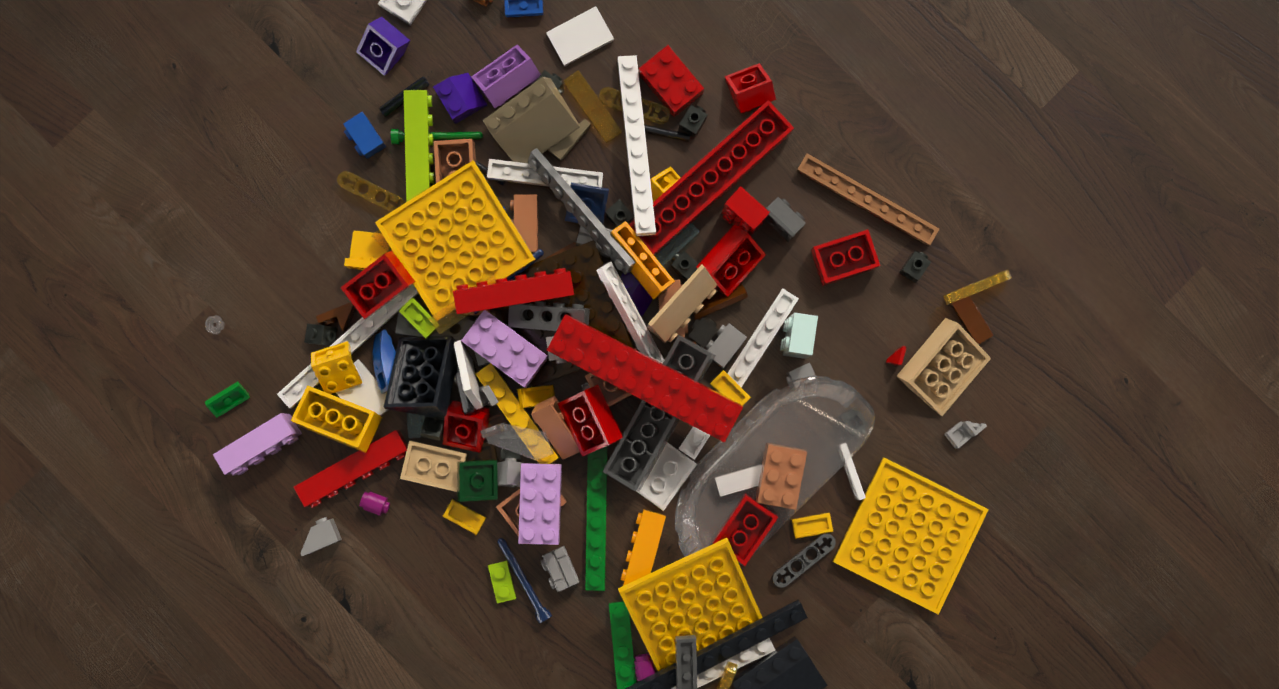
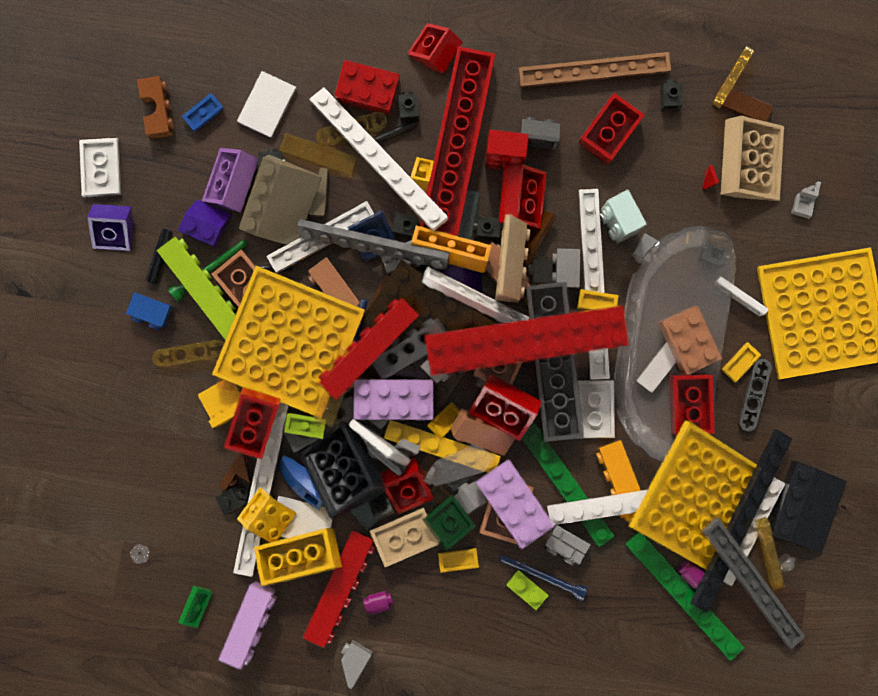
camera: 35 degrees left, 0 degrees up
(603, 555) = (595, 507): none -> white plate

